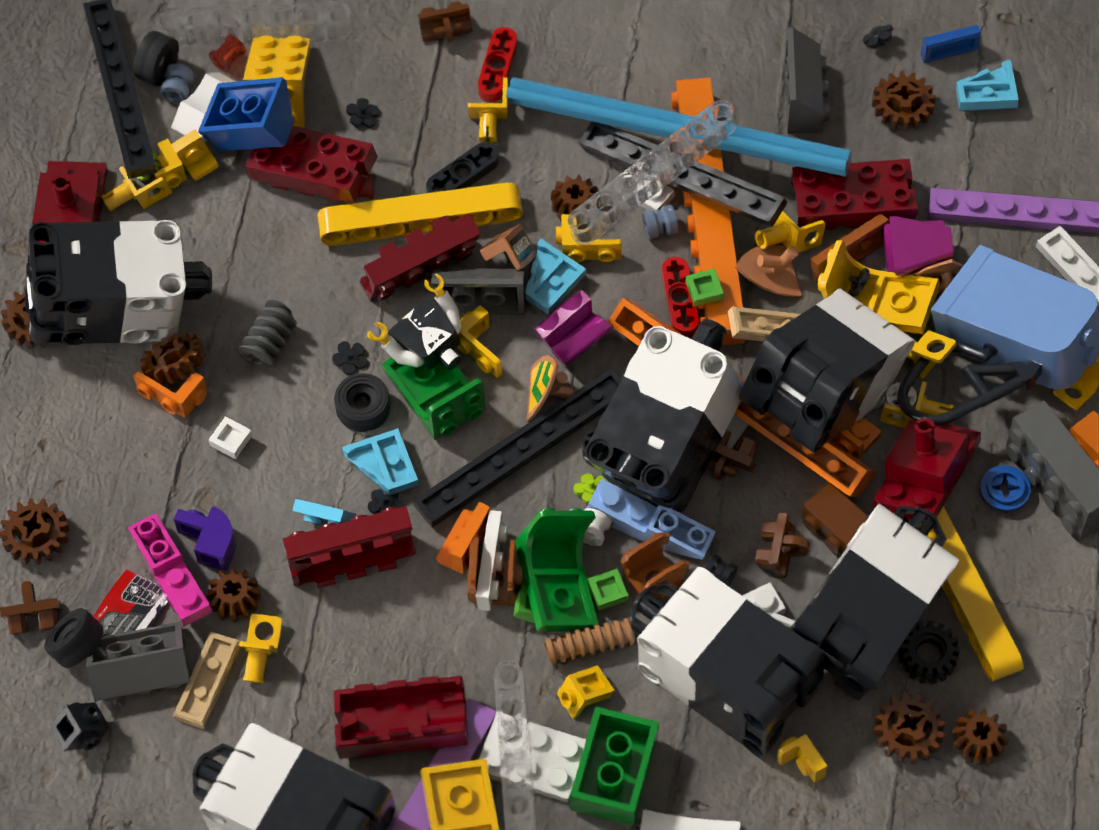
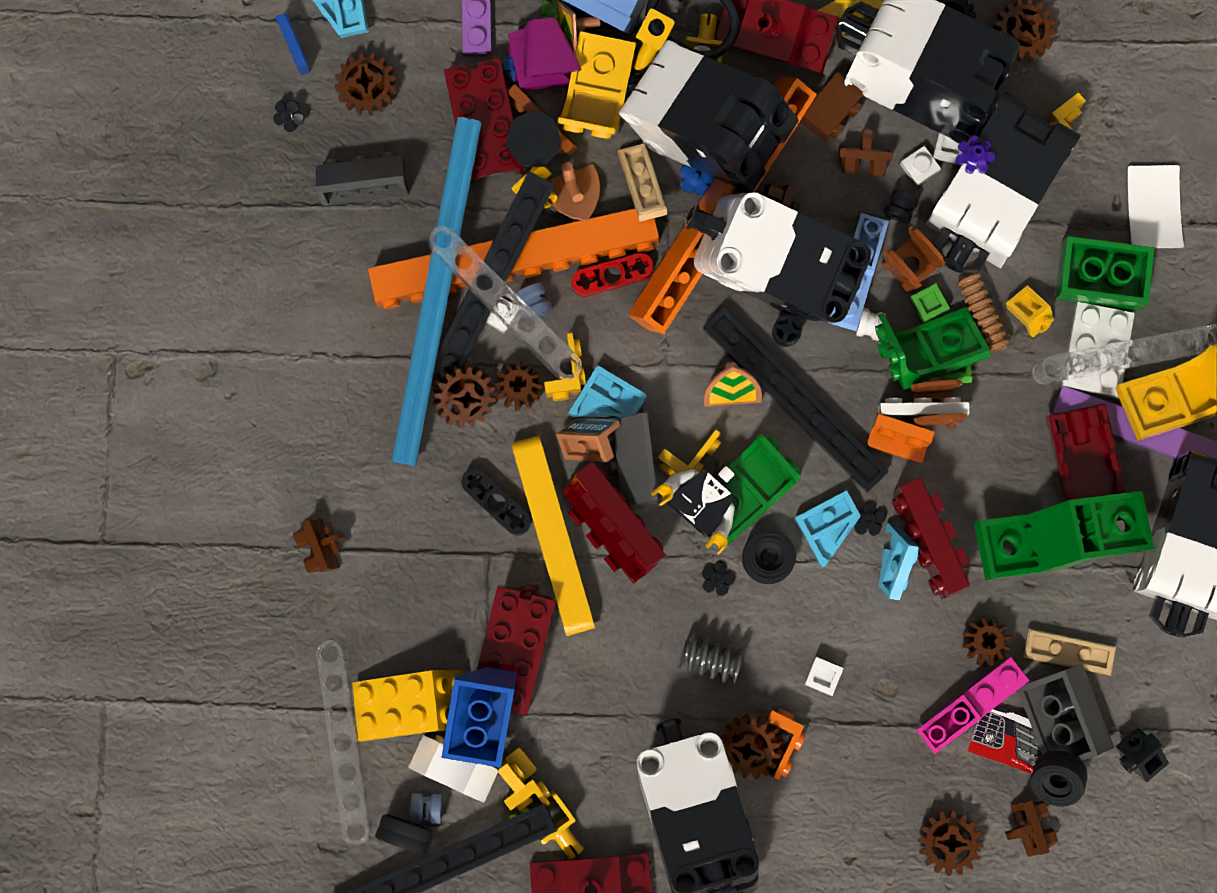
camera: 100 degrees left, 20 degrees up
(214, 535) = (929, 668): dark purple brick -> none
(227, 53) = (381, 763): clear red bush -> none
(259, 649) = (1035, 608): yellow bracket -> none
(326, 668) = (1064, 535): none -> green bracket
(361, 112) = (435, 614): black plant -> none
(488, 115) = (428, 484): yellow bracket -> none
(495, 53) = (340, 491): red beam -> none
(570, 147) = (454, 387): none -> reddish brown gear
(572, 328) = (670, 367): magenta piece -> none
(587, 486) = (824, 333): lime plant -> none
(704, 287) = (618, 244): bright green plate -> none
(752, 609) = (974, 159): none -> dark purple plant
(823, 221) = (533, 139): none -> black hat
(858, 282) = (585, 106): black plant -> none

